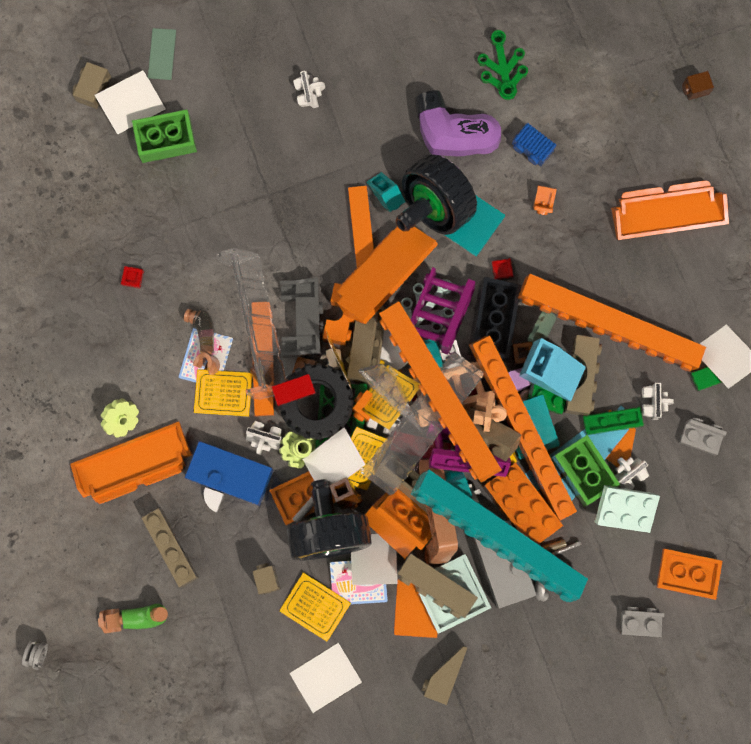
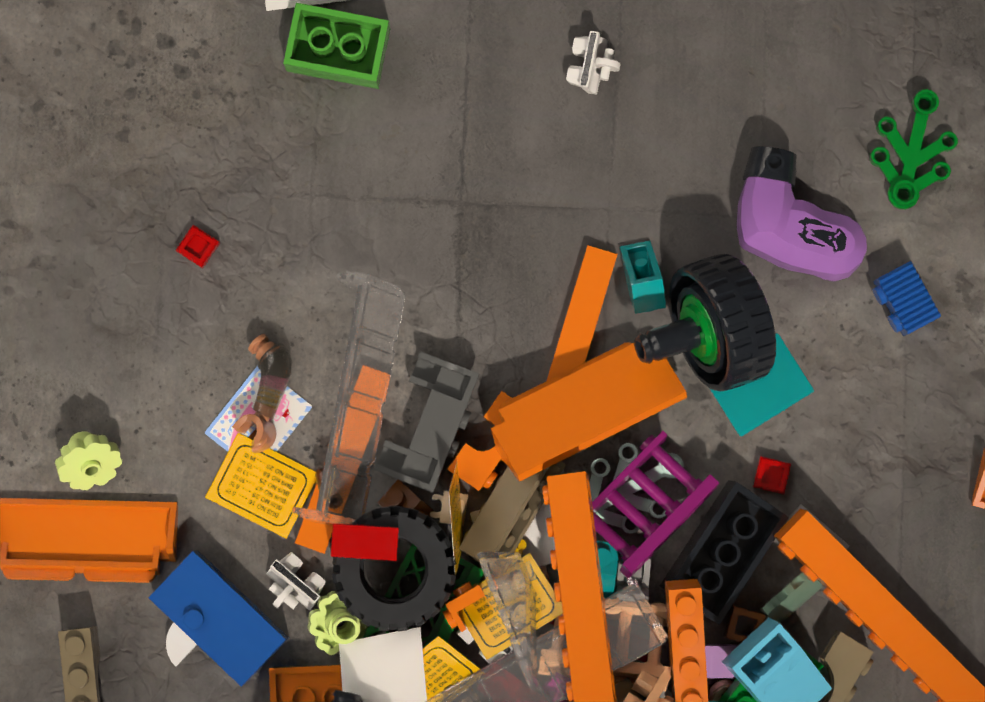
camera: 25 degrees right, 5 degrees up
(544, 199) = (884, 394): orange bracket -> none

